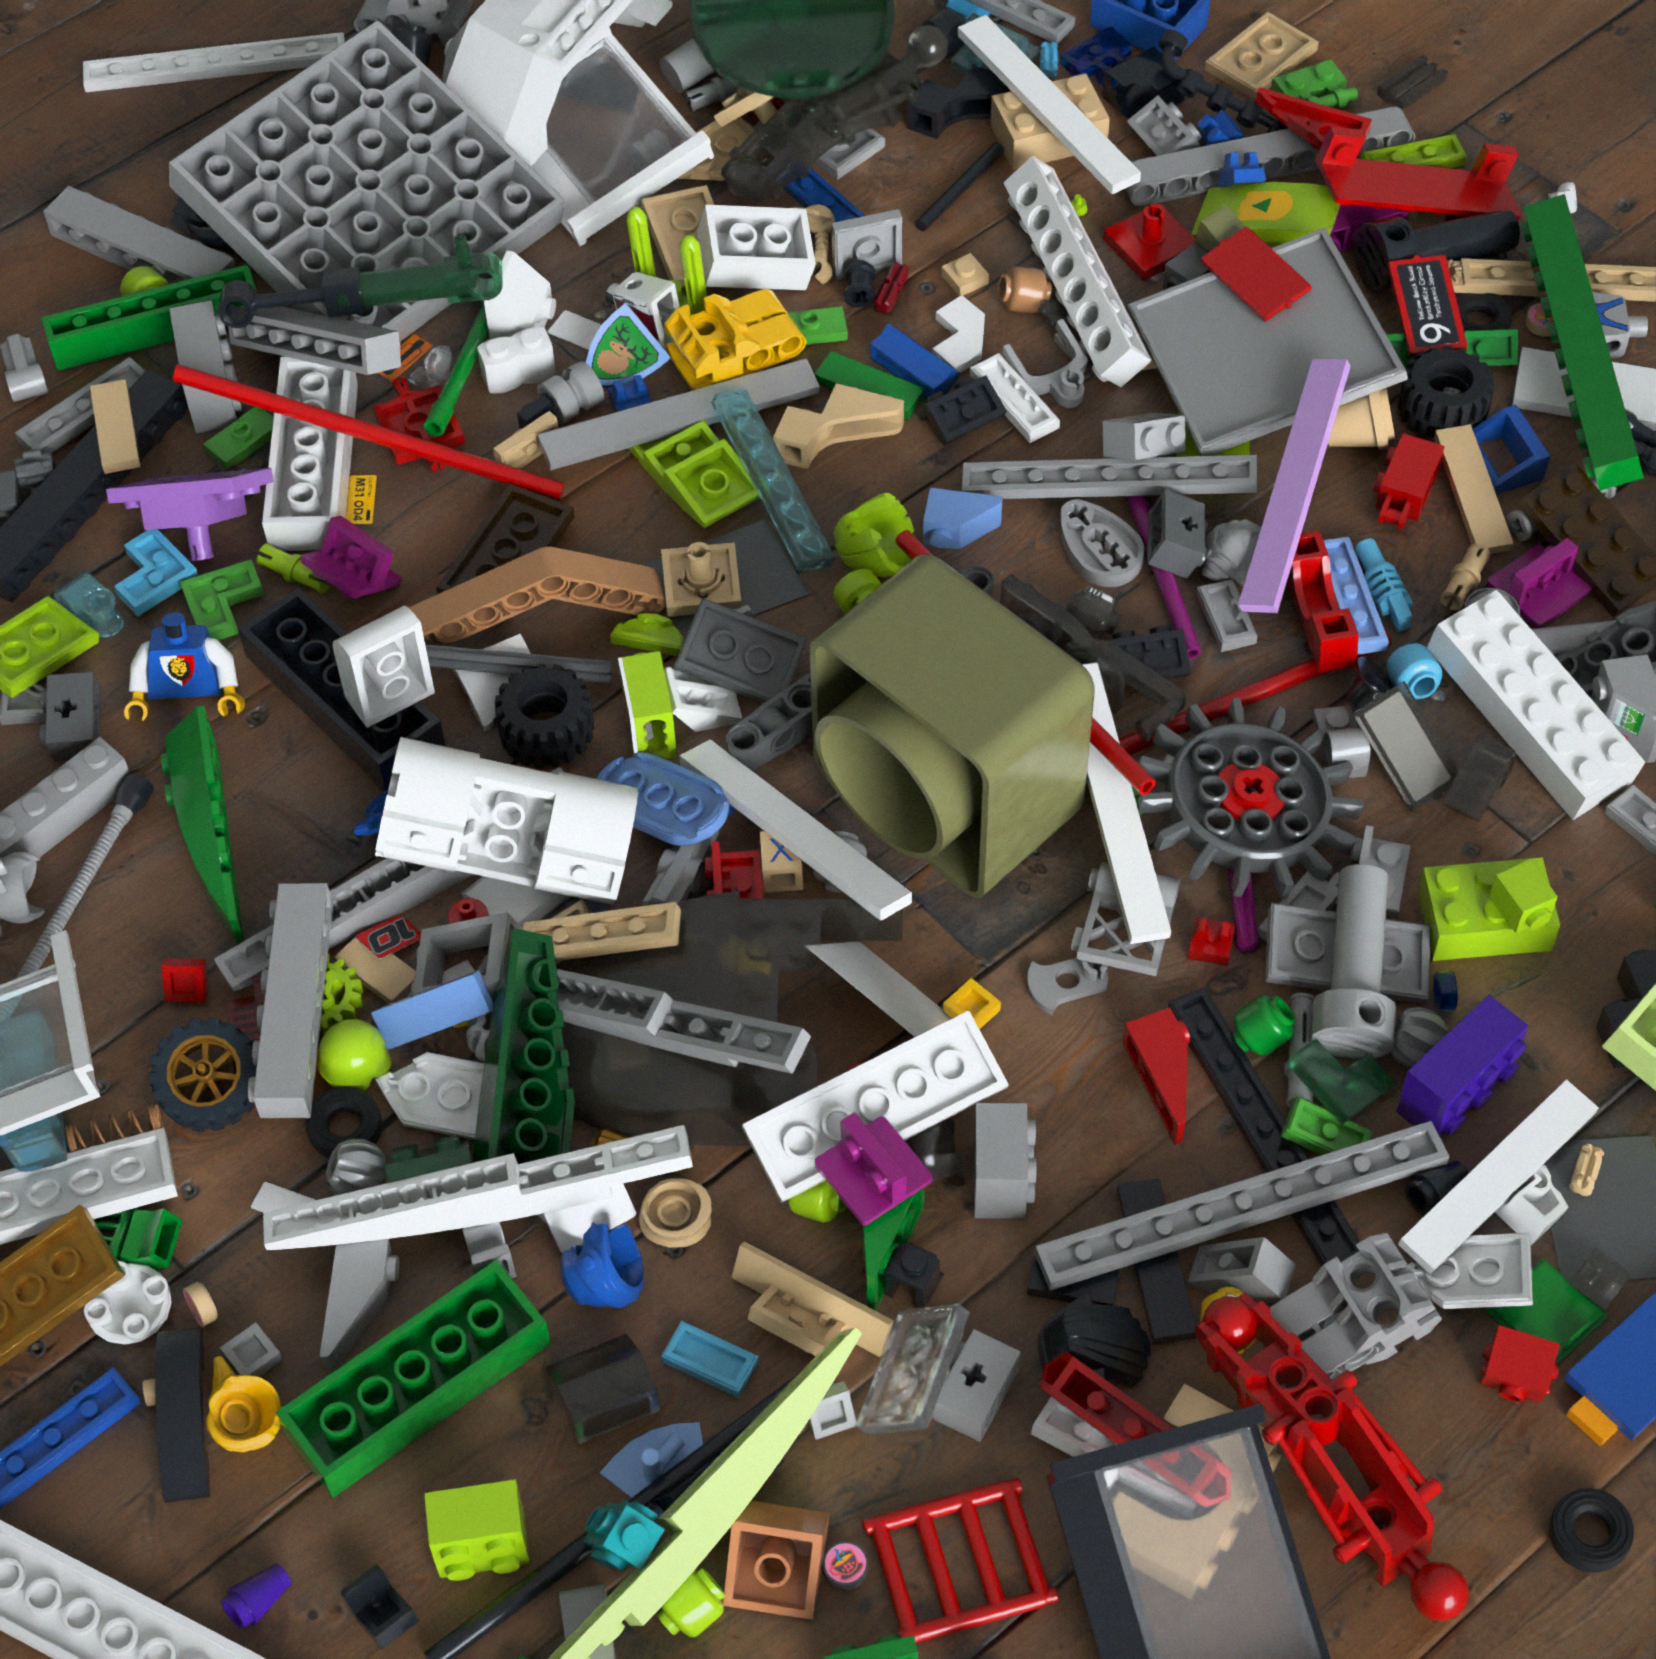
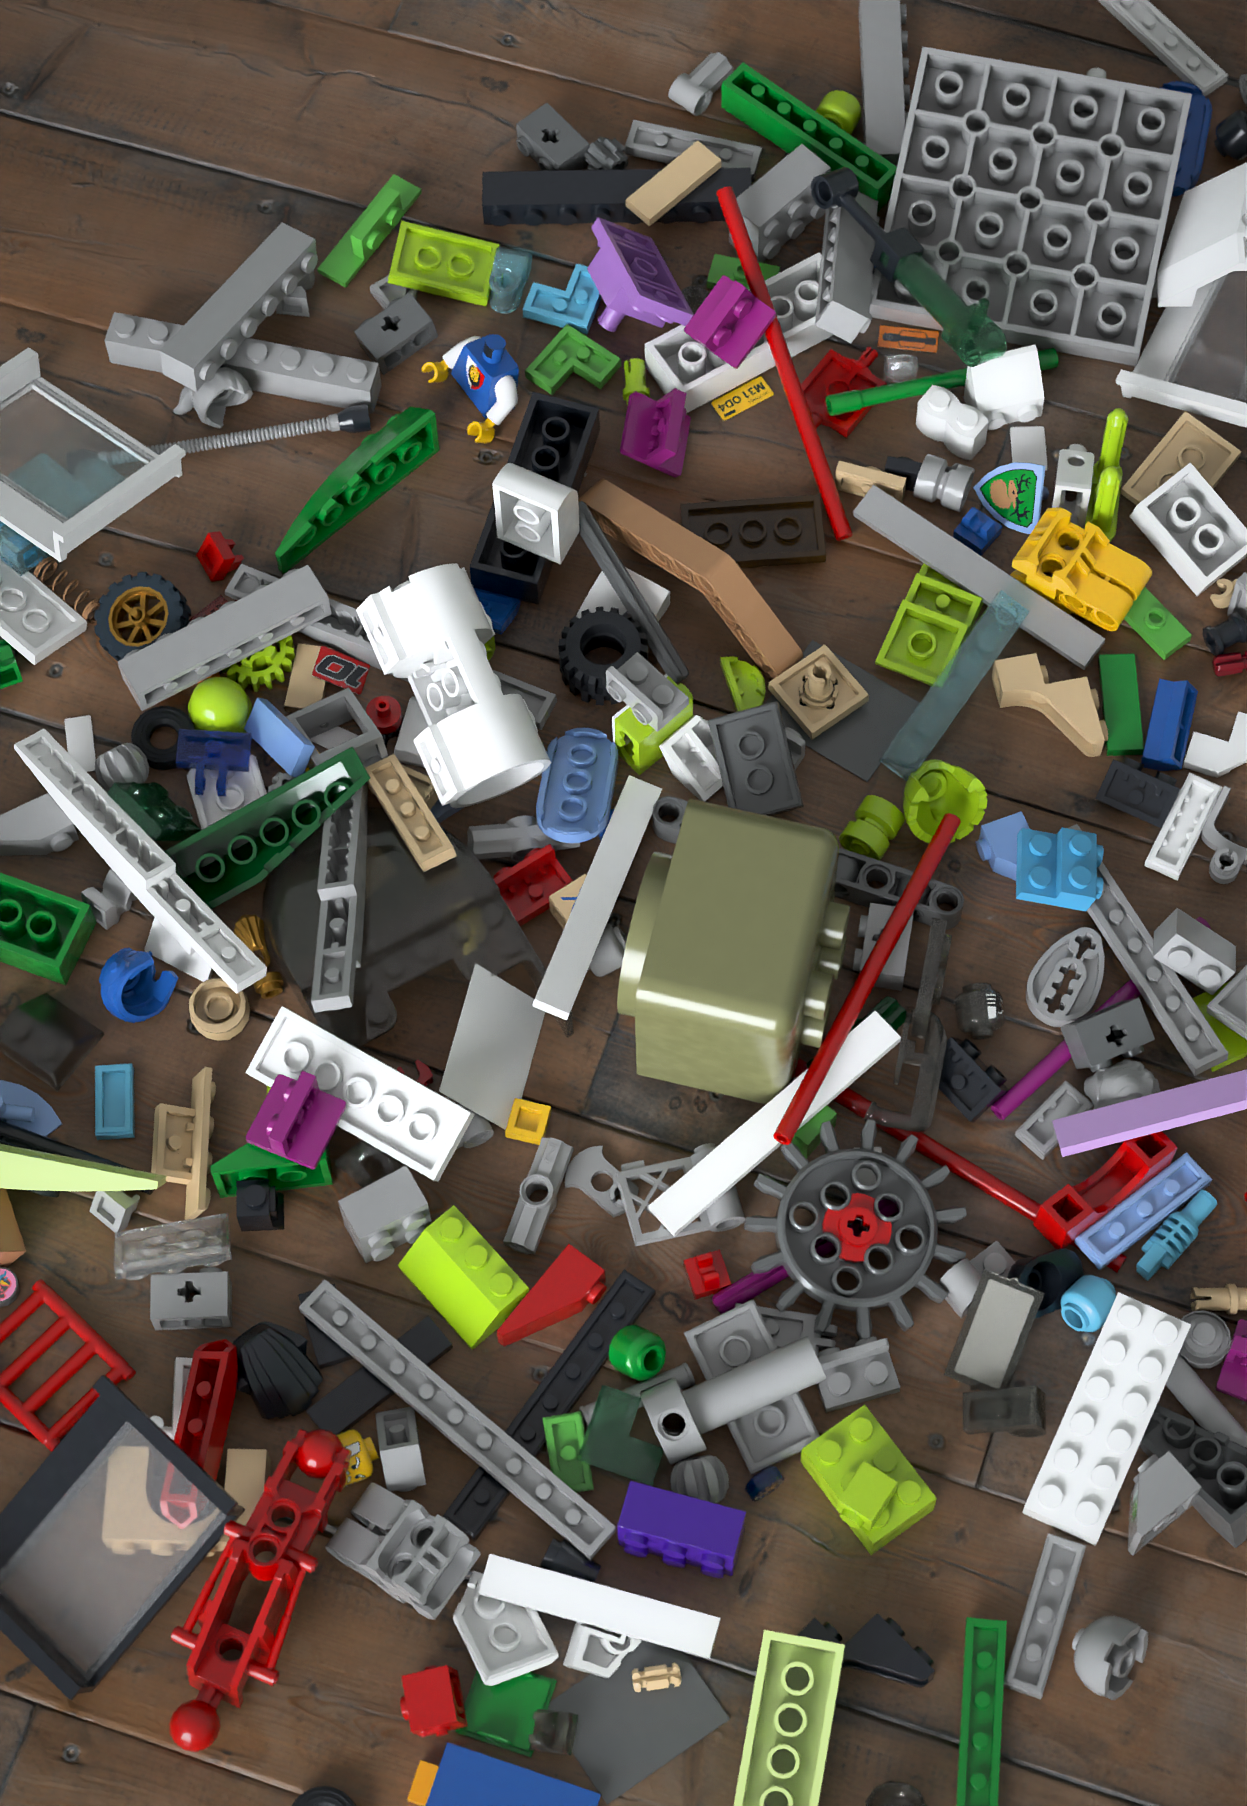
camera: 60 degrees right, 10 degrees up
(302, 441) = (730, 321): none -> magenta bracket
(402, 1076) = (213, 752): none -> clear blue hinge
(628, 677) = (646, 692): none -> light grey bracket
(1006, 483) = (1059, 868): none -> dark azure plate
(1071, 1048) = (545, 1174): none -> light grey piece
(1099, 1133) = (463, 1277): none -> lime slope

